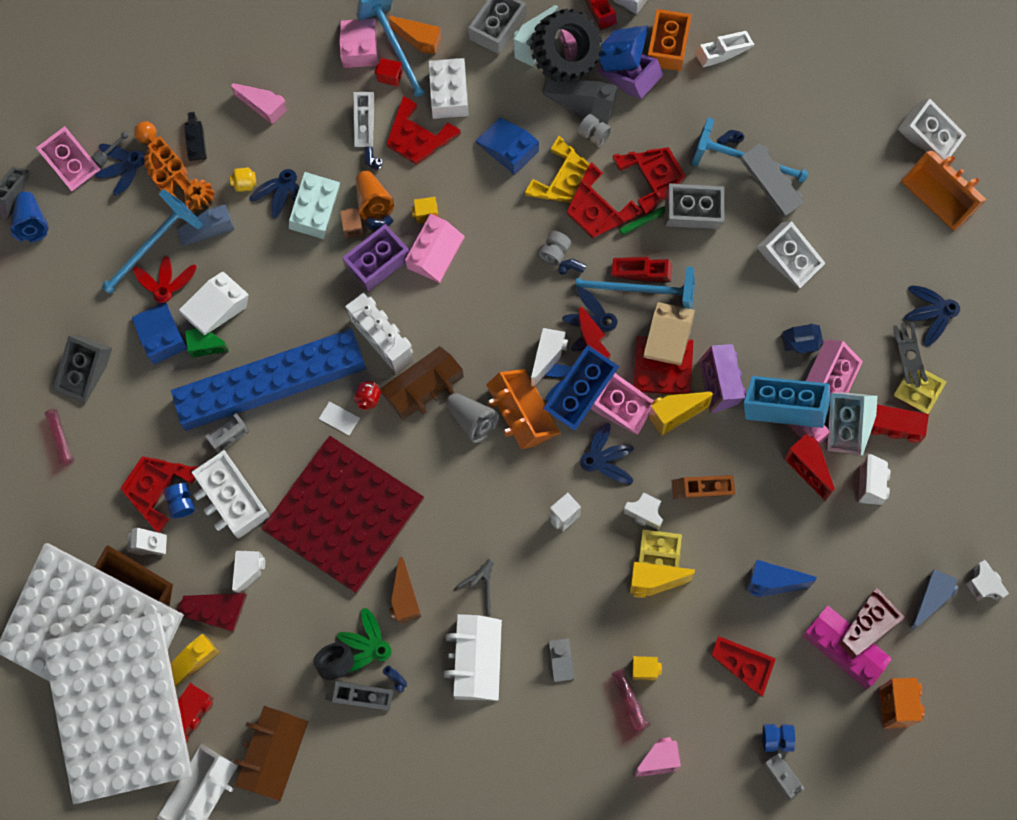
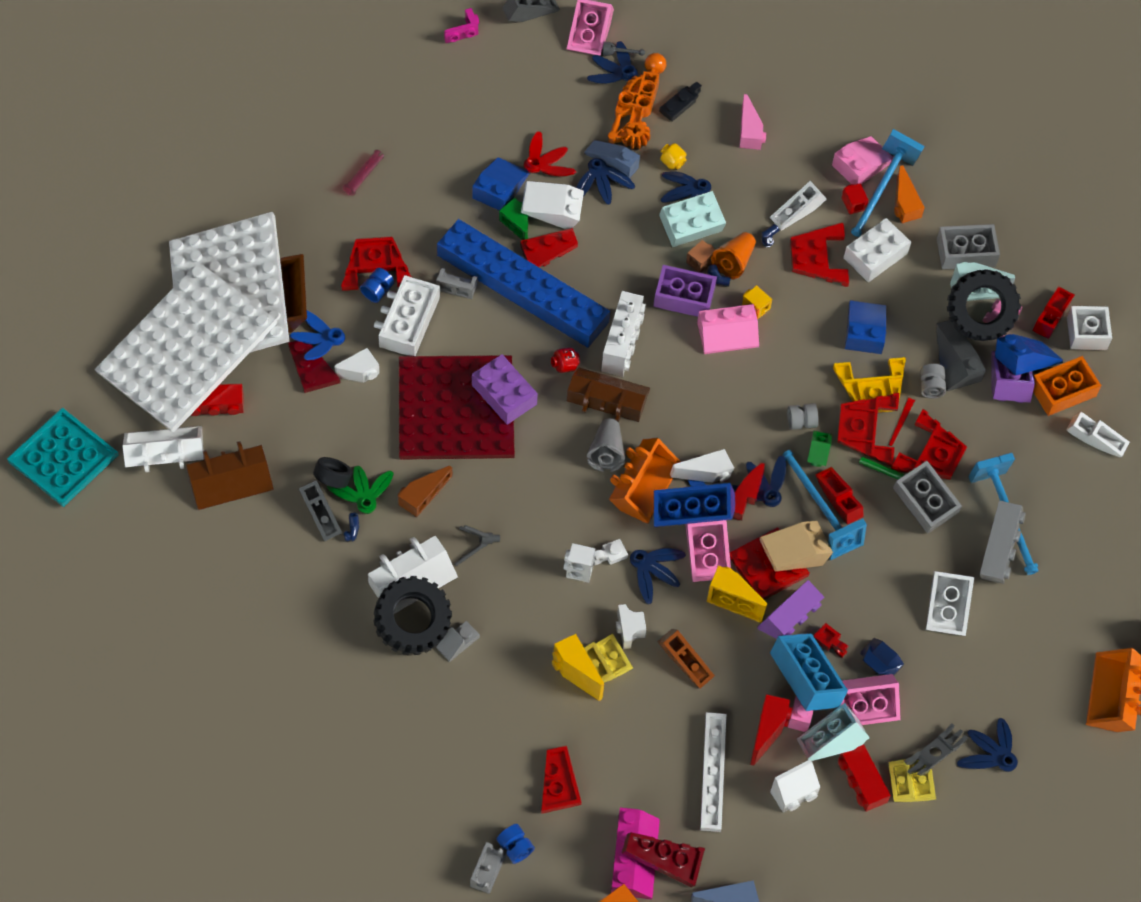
camera: 45 degrees right, 10 degrees down
(28, 219) = (518, 33): blue cone -> none
(81, 367) = (430, 149): dark grey slope -> none
(146, 542) = (327, 284): white brick -> none
(179, 211) = (607, 126): dark azure tile -> none
(192, 659) = (260, 375): yellow slope -> none
(194, 579) = (326, 338): none -> blue plant
(214, 246) = (600, 172): none -> dark blue plant
(249, 337) = (547, 247): none -> red wing
(339, 418) = (532, 355): white sticker -> none
(361, 463) = (504, 389): none -> medium lavender brick
(545, 679) = (431, 597): none -> black tyre
(568, 478) = (612, 552): none -> white plate
(571, 264) = (799, 438): dark blue arm -> none
(591, 254) = (819, 448): none -> green slope
(598, 163) = (906, 410): none -> red sticker
(636, 709) = (457, 718): clear pink pin -> none
(646, 668) = (498, 706): yellow brick -> none
(660, 759) = (427, 754): bright pink slope -> none
(731, 136) = (1020, 491): dark blue arm -> none
(760, 365) = (829, 638): none -> red plate
(772, 579) = (645, 759): blue slope -> none
(816, 535) = (713, 772): none -> white plate

